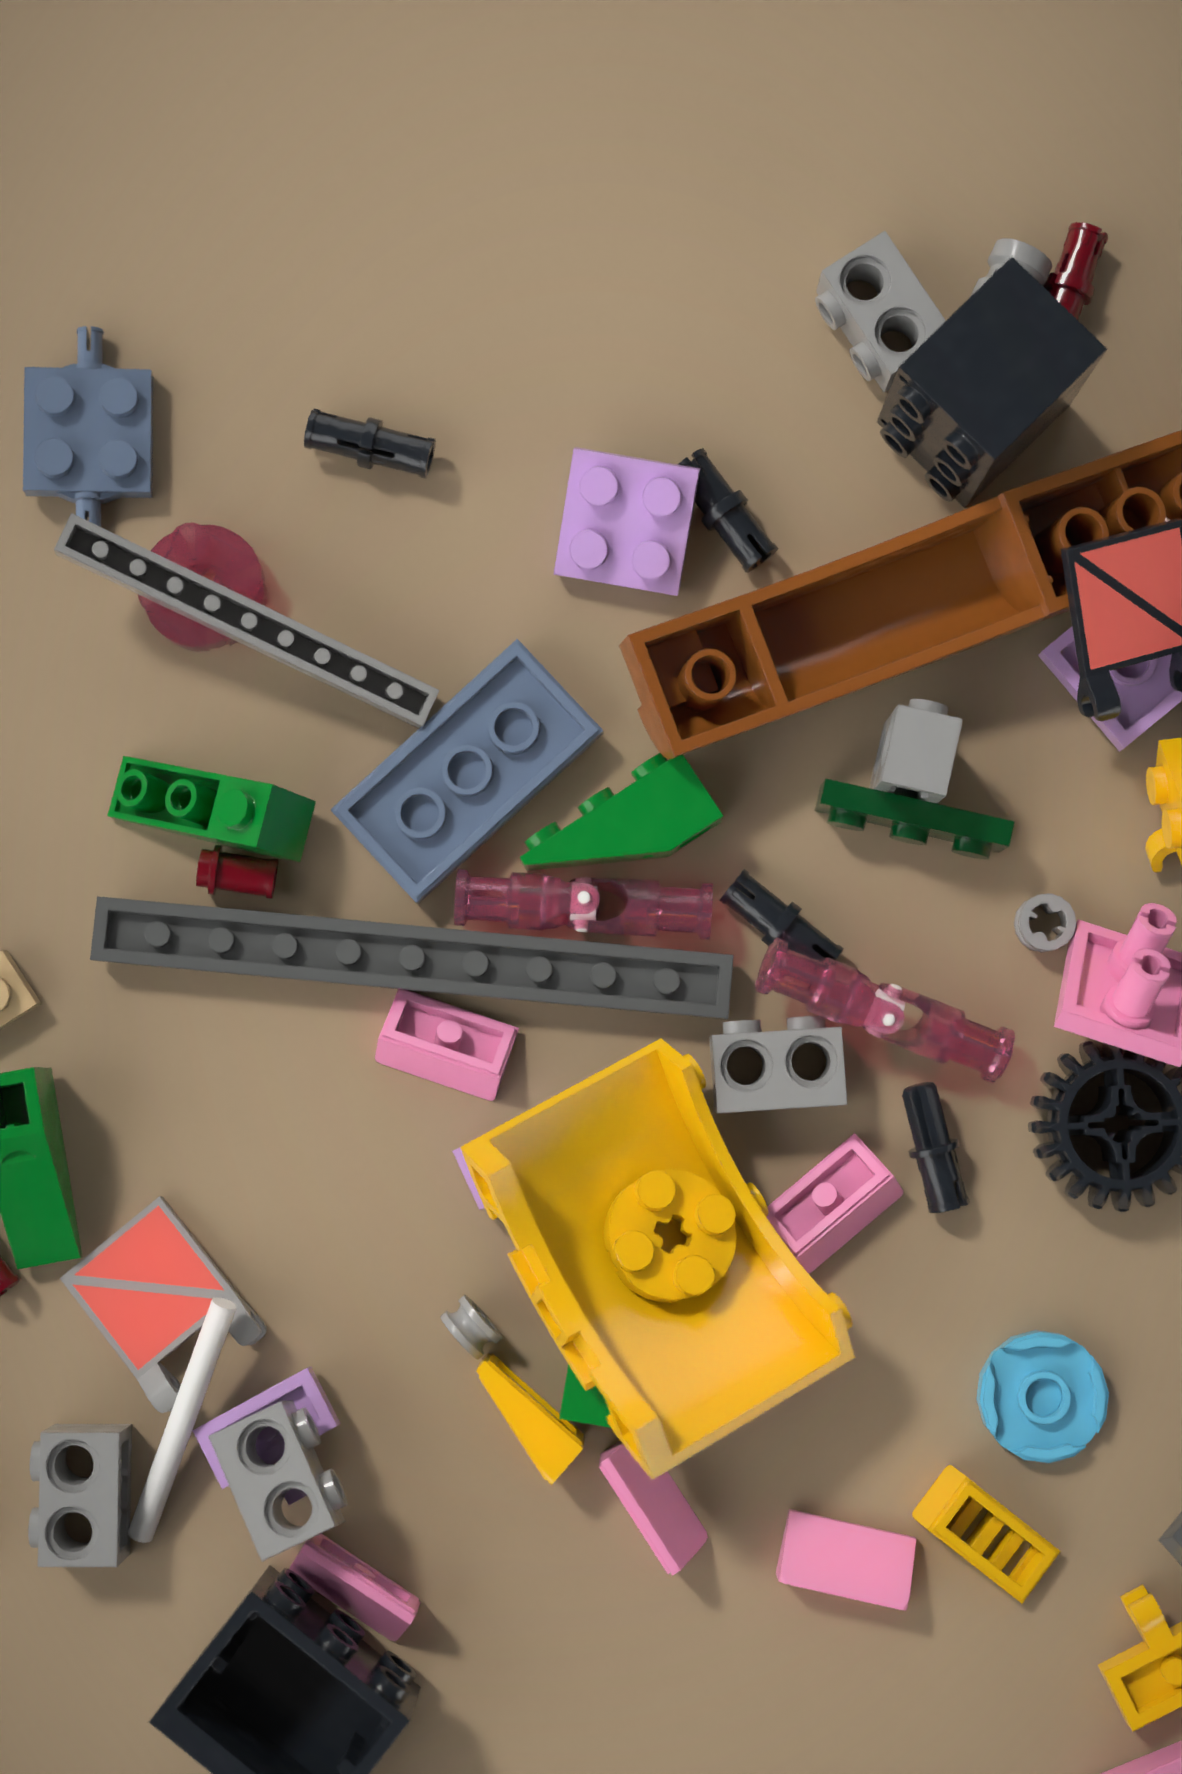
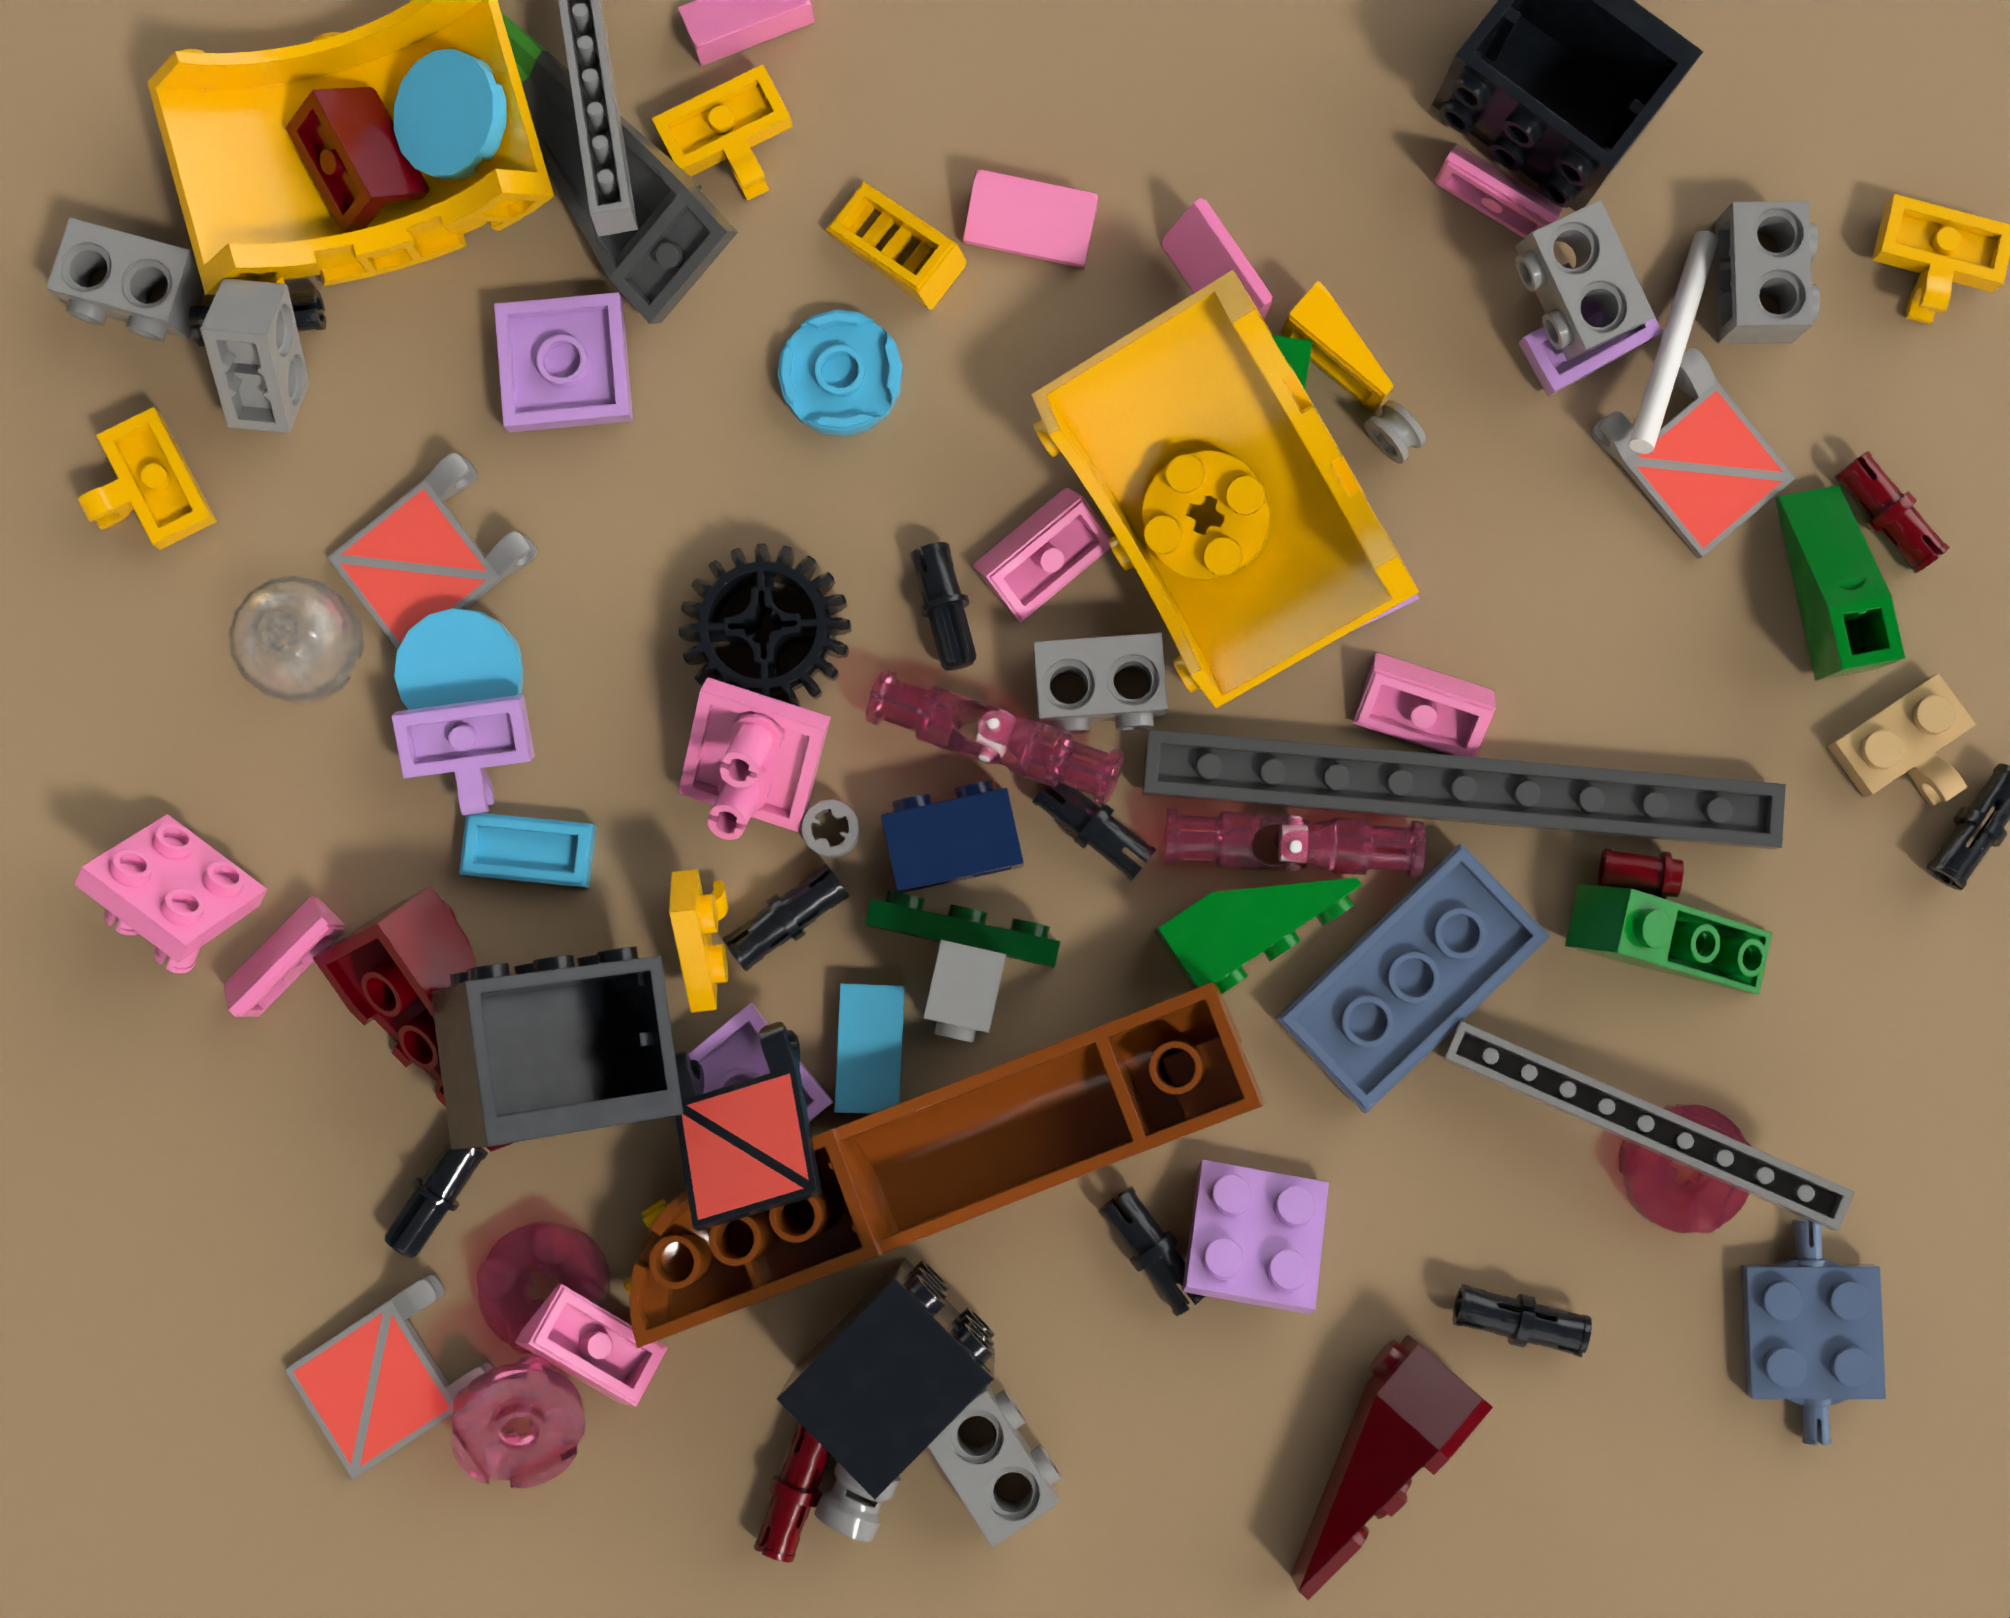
camera: 175 degrees right, 0 degrees up
(486, 341) = (1406, 1420): none -> dark red wedge
(925, 909) = (951, 837): none -> dark blue brick
(1003, 706) = (869, 1048): none -> medium azure tile
(1088, 834) = (785, 917): none -> black pin

